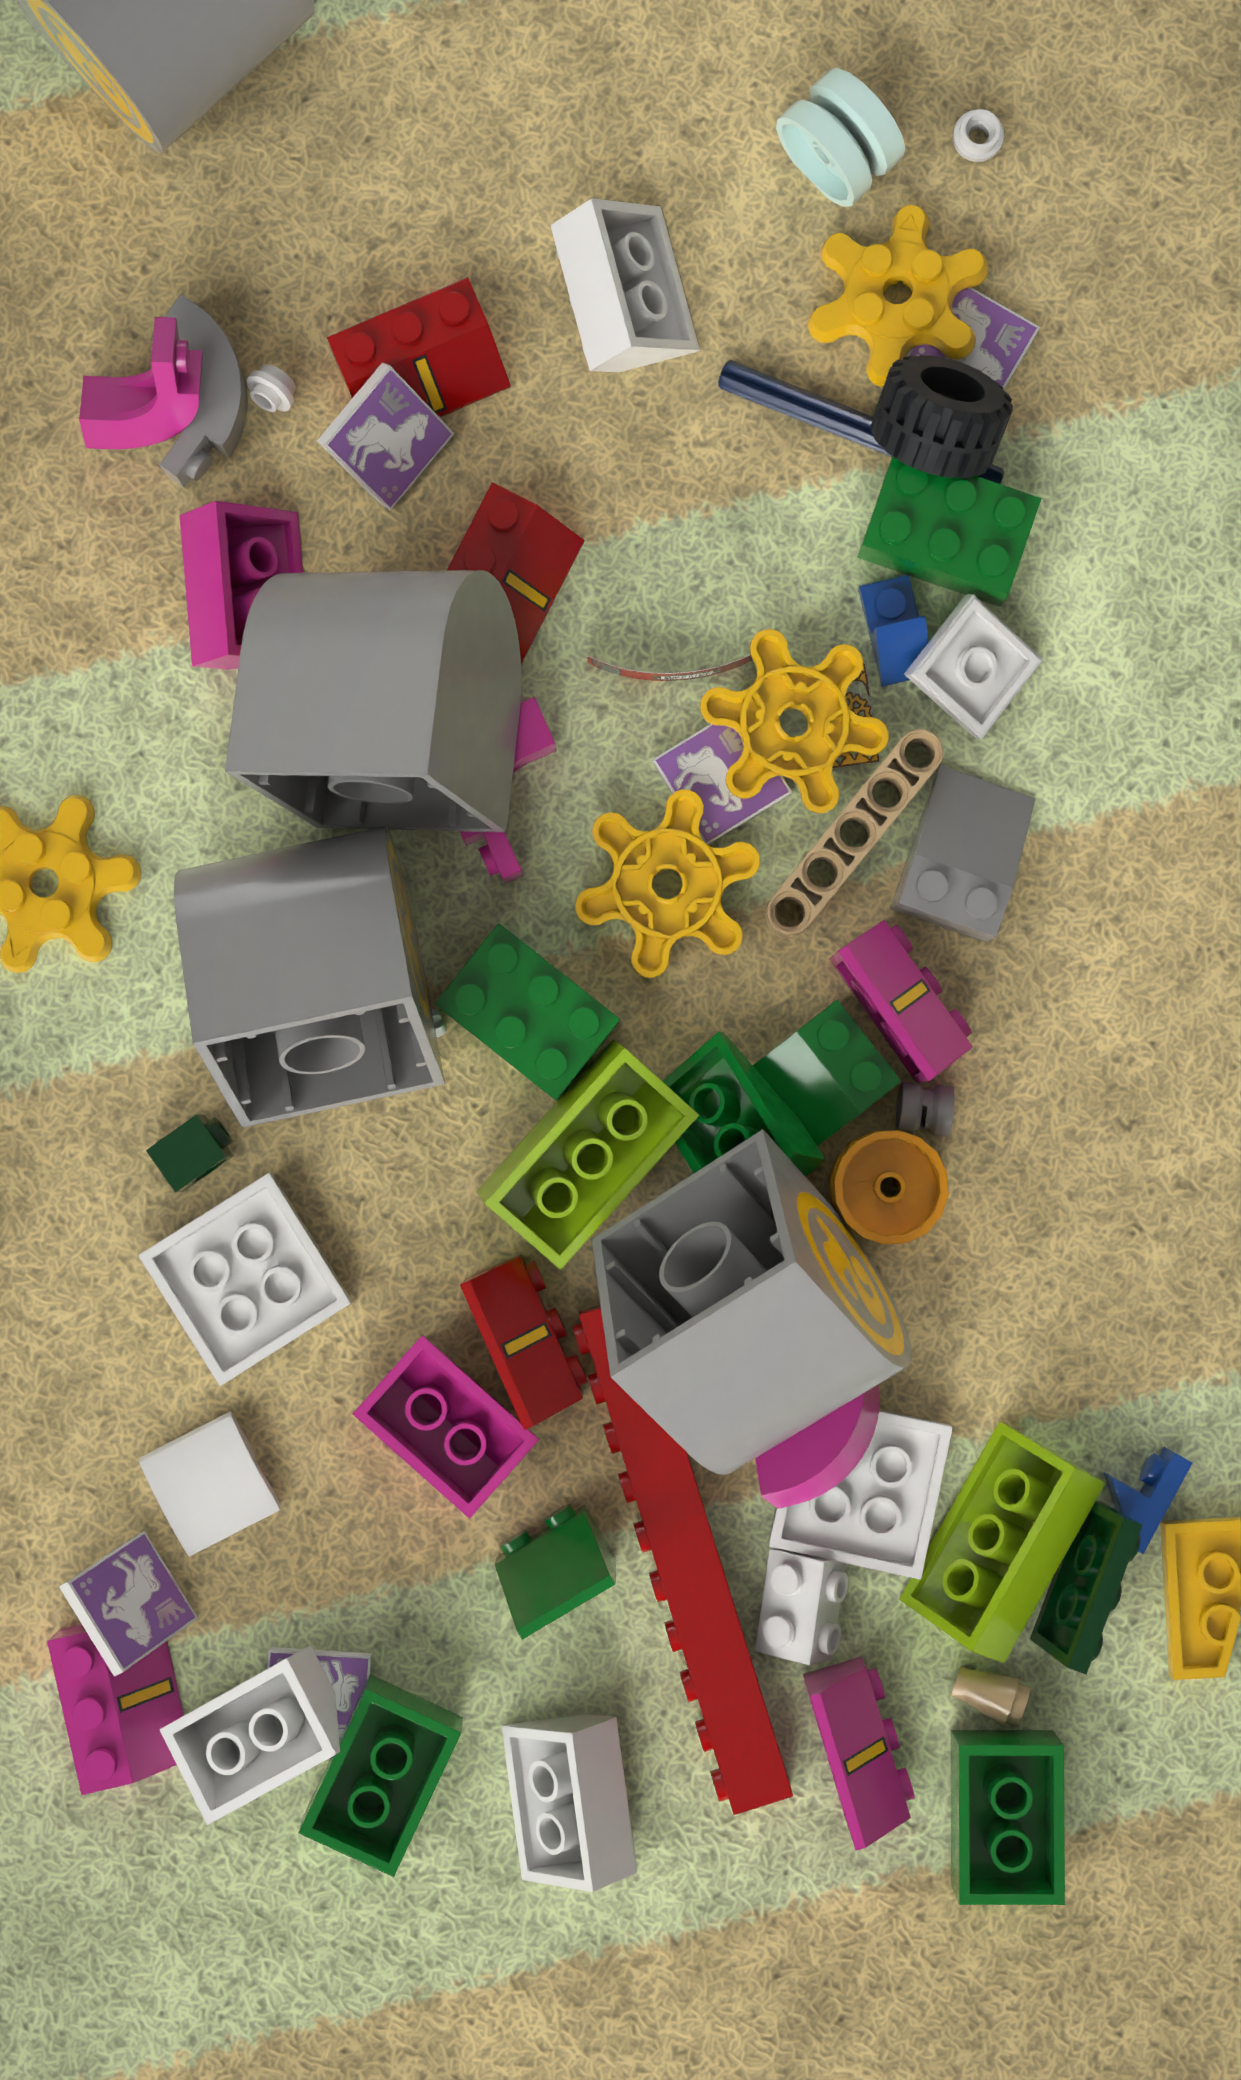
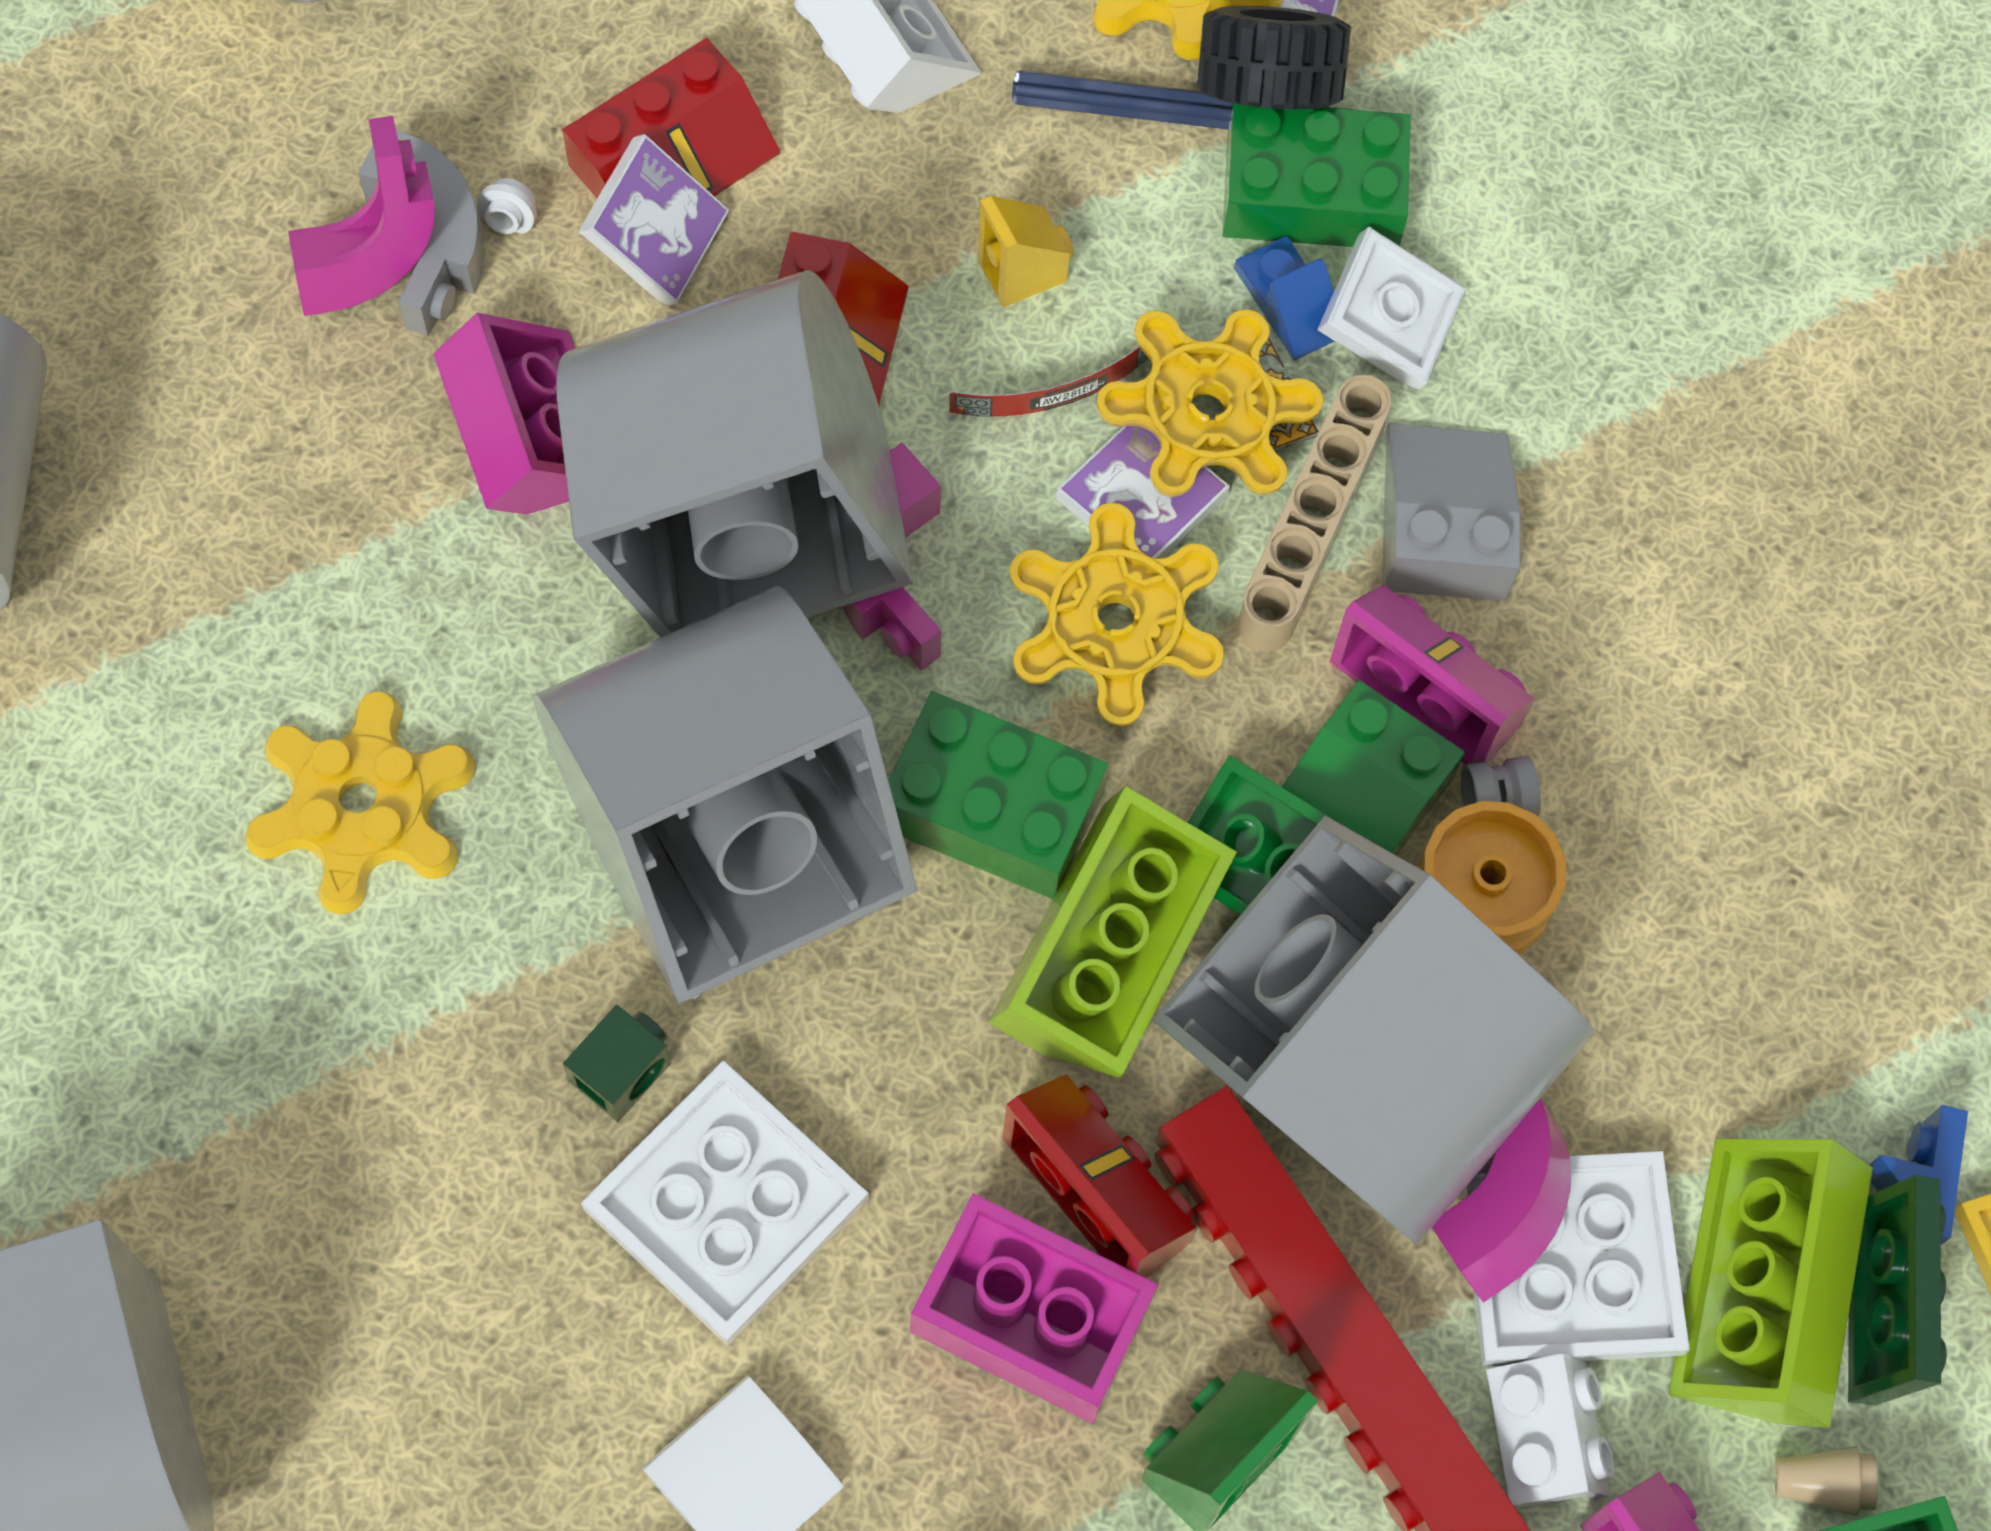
camera: 20 degrees left, 20 degrees down
(683, 538) = (1021, 249): none -> yellow slope

